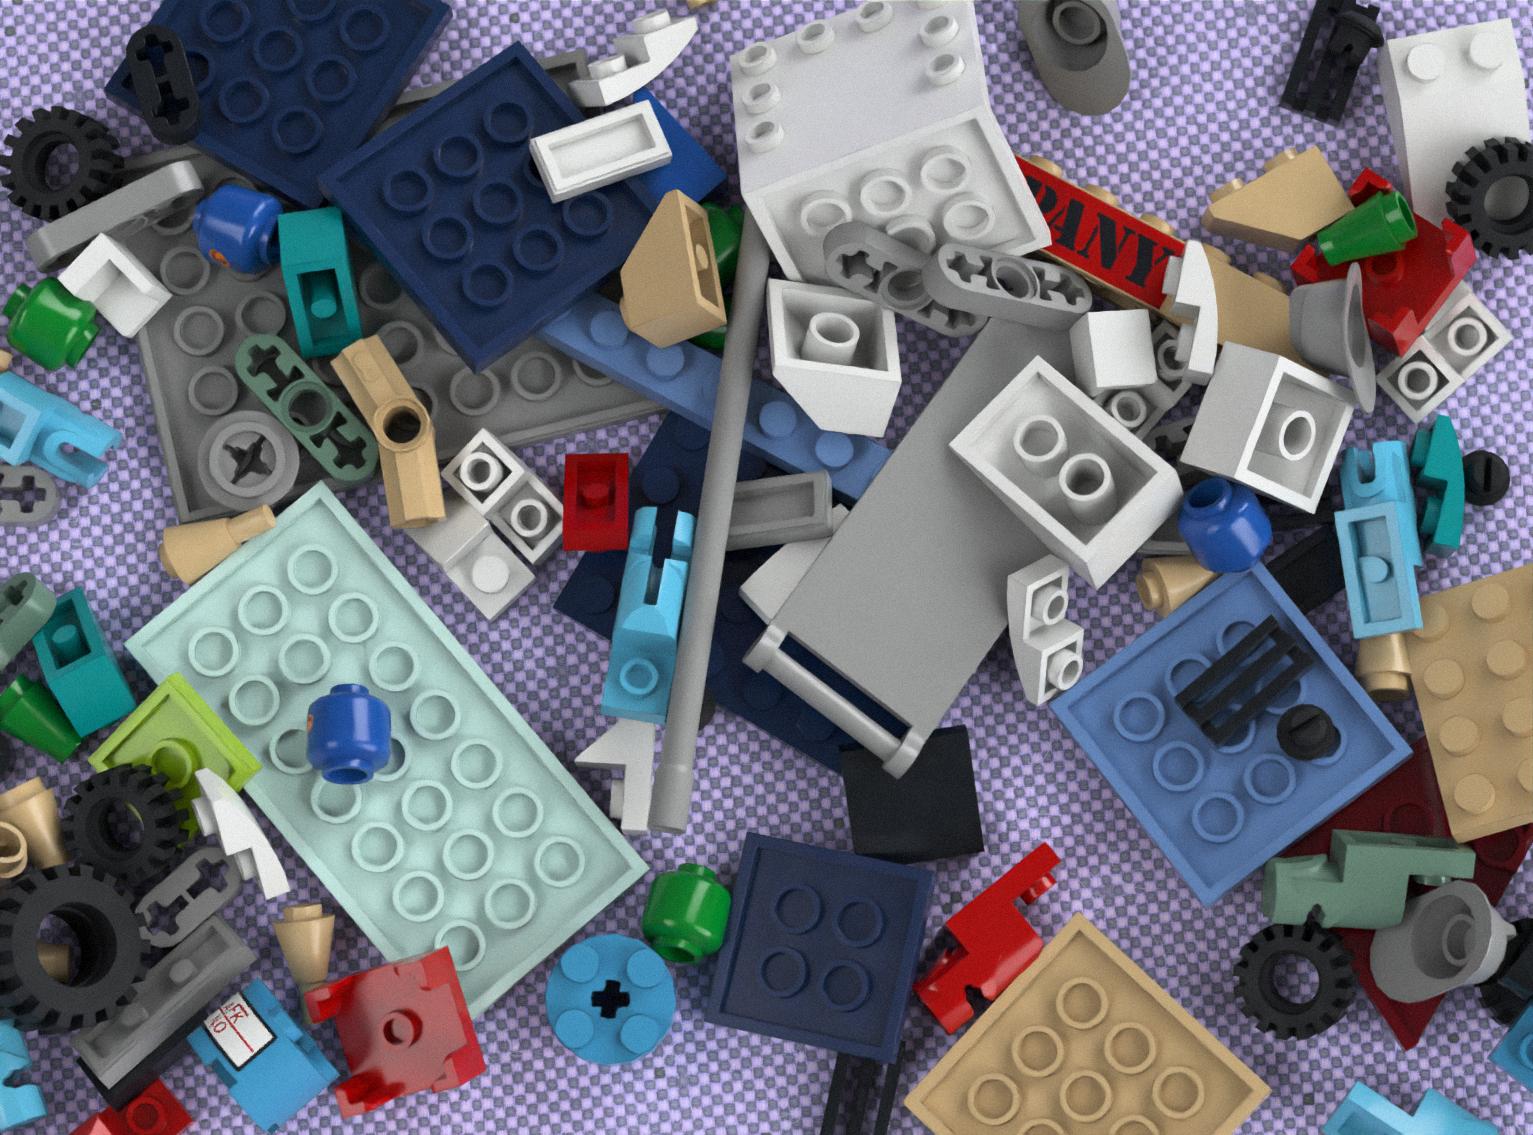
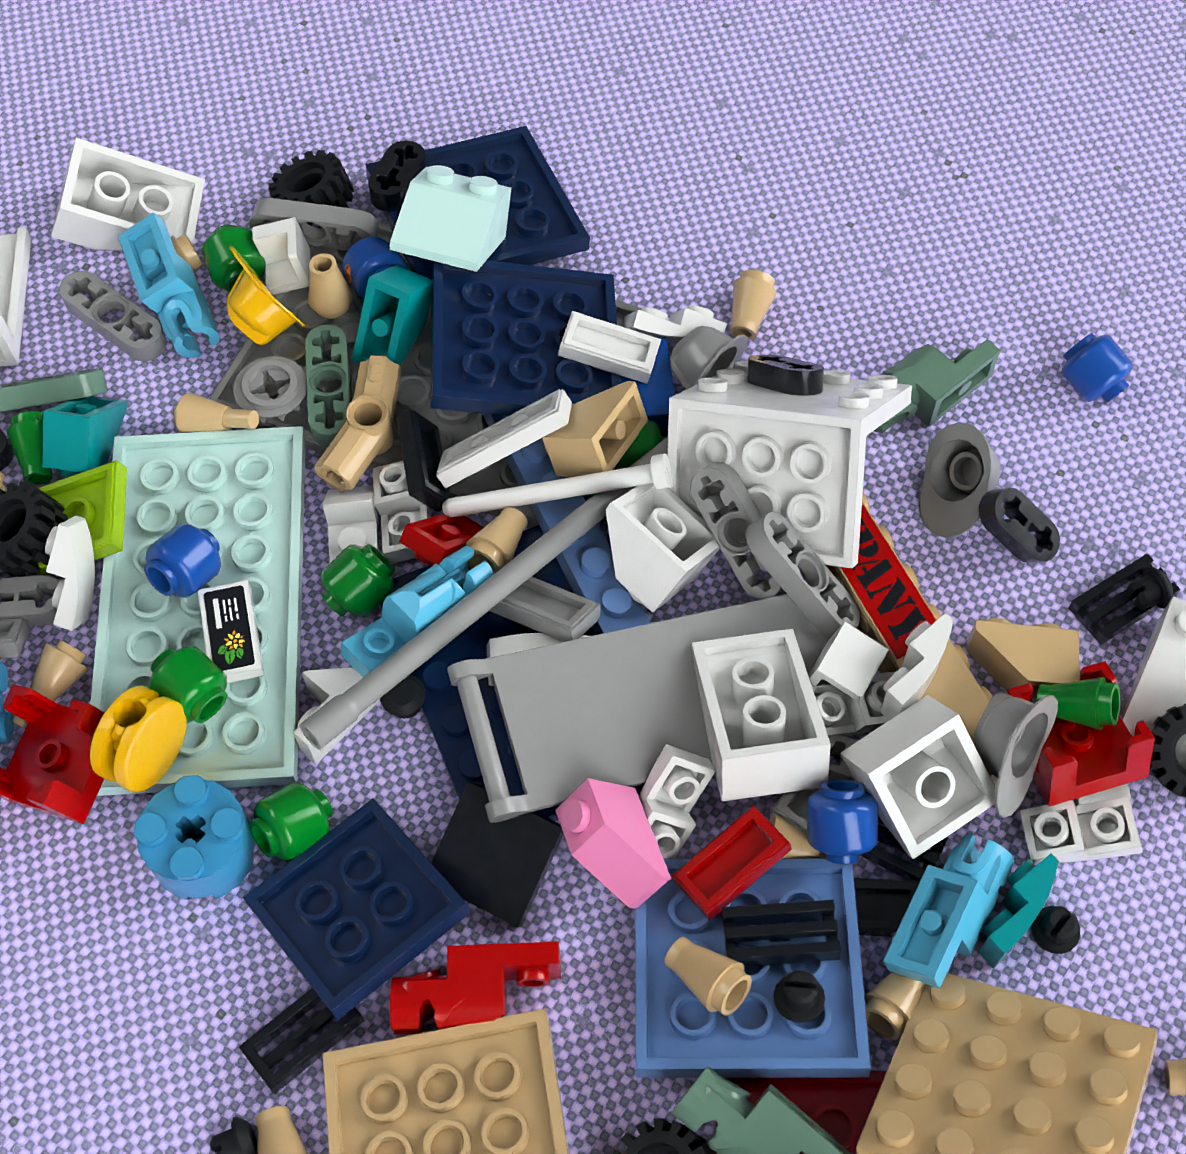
camera: 40 degrees right, 20 degrees down
(151, 376) = (255, 308): none -> yellow piece
(217, 305) = (328, 289): none -> tan cone
(303, 118) = (452, 218): none -> light aqua slope
(460, 771) = (231, 630): none -> tile
(477, 861) = (190, 680): none -> green head
(486, 950) = (138, 739): none -> yellow head
(497, 429) = (421, 458): none -> black tile
(539, 616) = (357, 580): none -> green head
(579, 350) = (504, 437): none -> white tile
(657, 471) = (498, 539): none -> tan cone
(703, 93) = (703, 354): none -> light grey piece
(786, 286) = (656, 472): none -> white bar
(827, 61) = (785, 374): none -> black beam
(1026, 706) = (613, 840): none -> bright pink slope
(1149, 644) = (731, 862): none -> red tile
(1175, 42) = (1023, 519): none -> black beam
(1211, 773) = (709, 975): none -> tan cone

